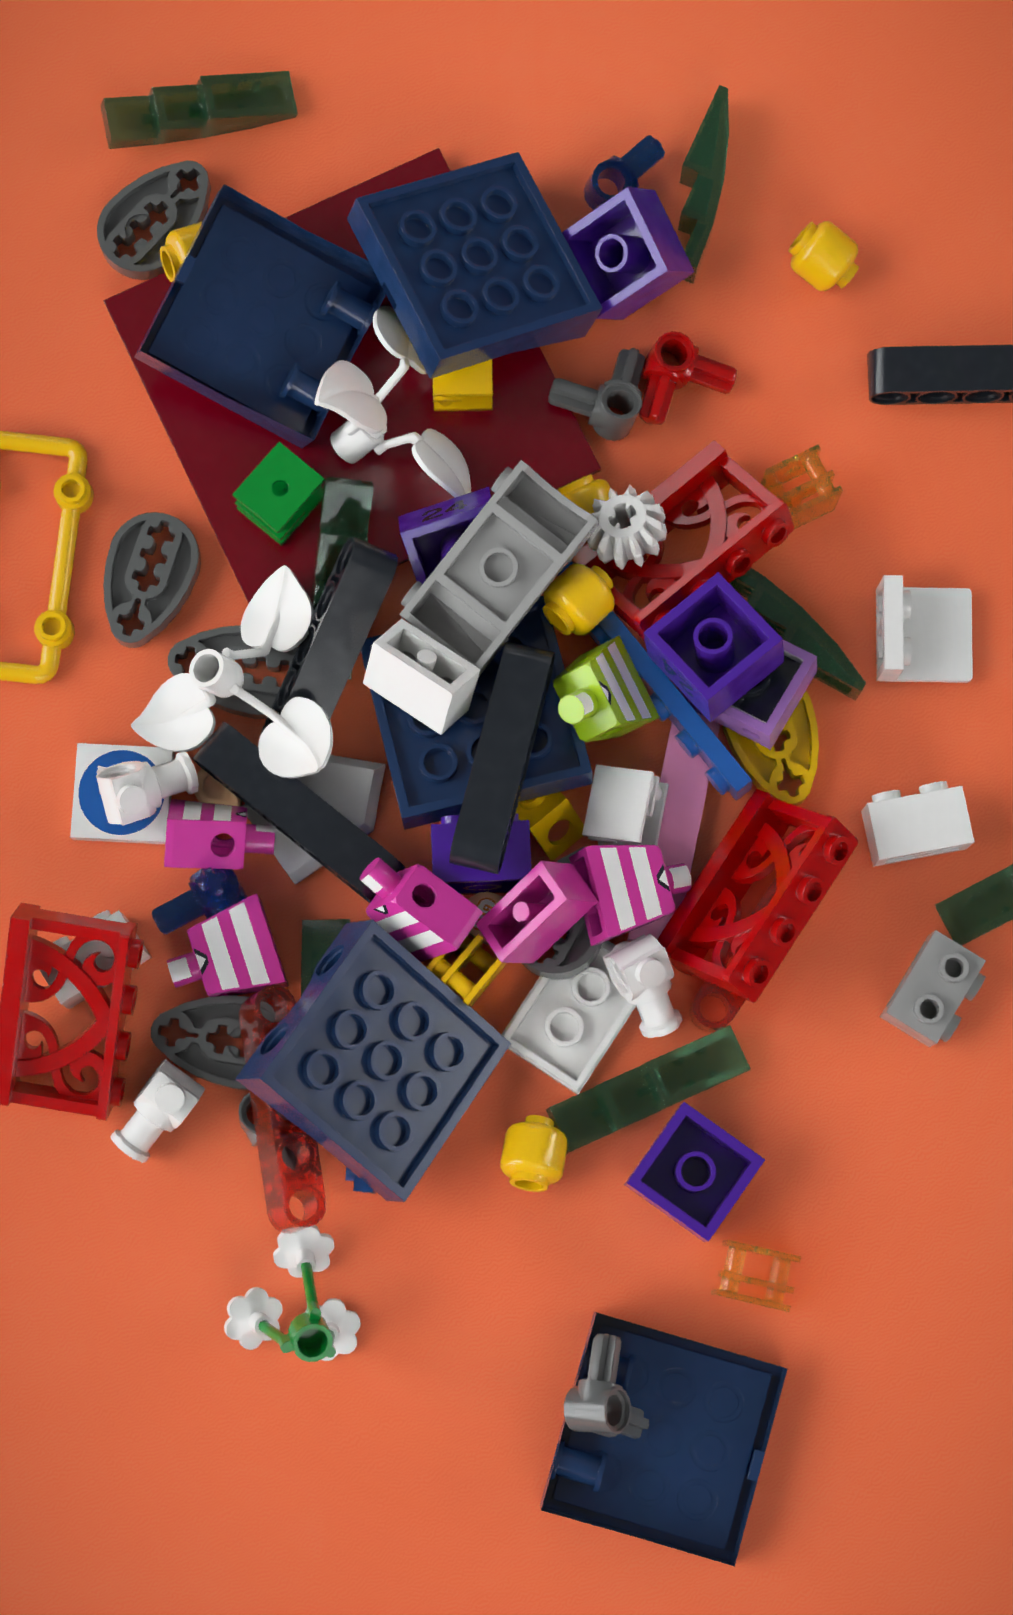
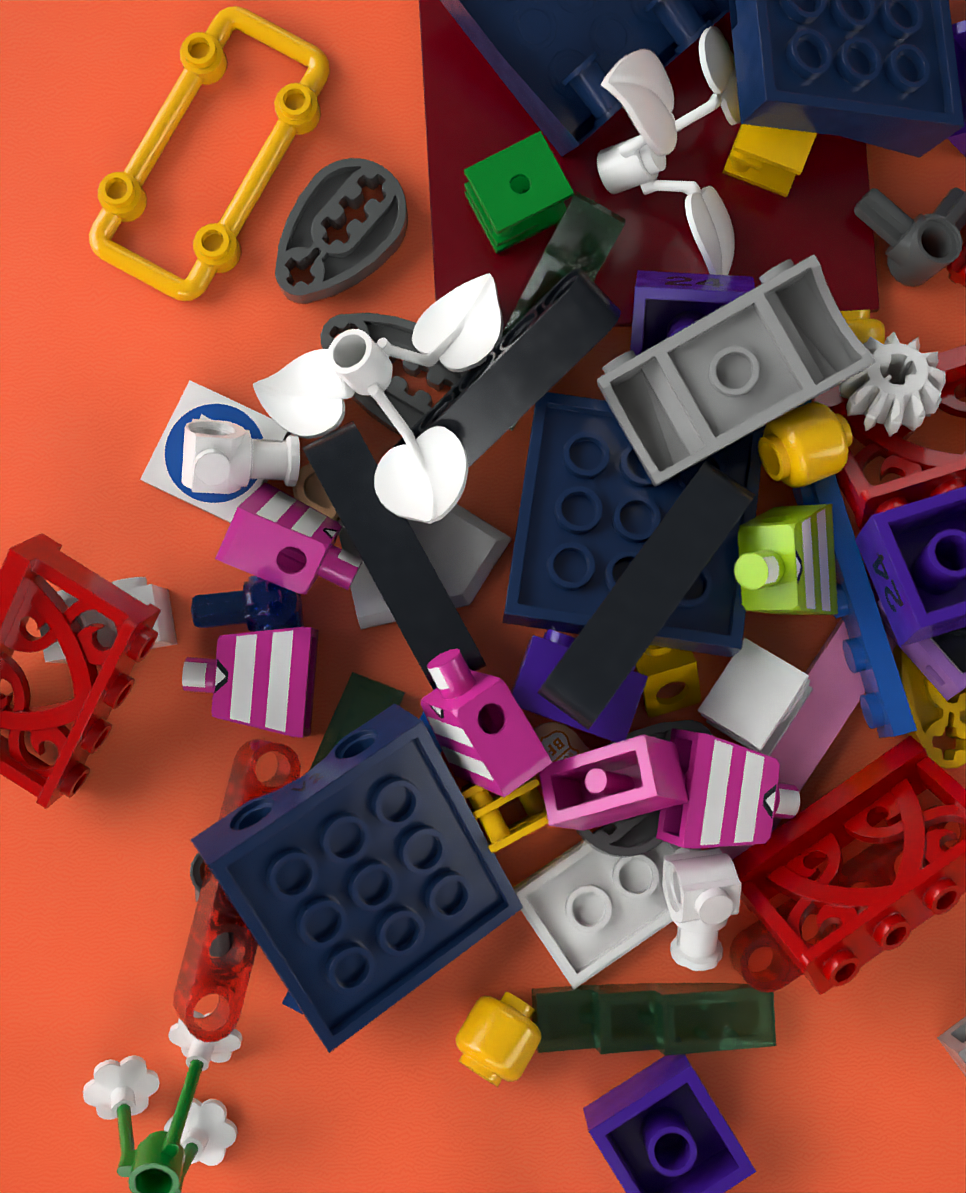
camera: 25 degrees right, 5 degrees up
(160, 1107) = (110, 818): white connector -> none
(198, 1054) = (180, 771): dark grey piece -> none
(421, 676) = (592, 460): white brick -> none

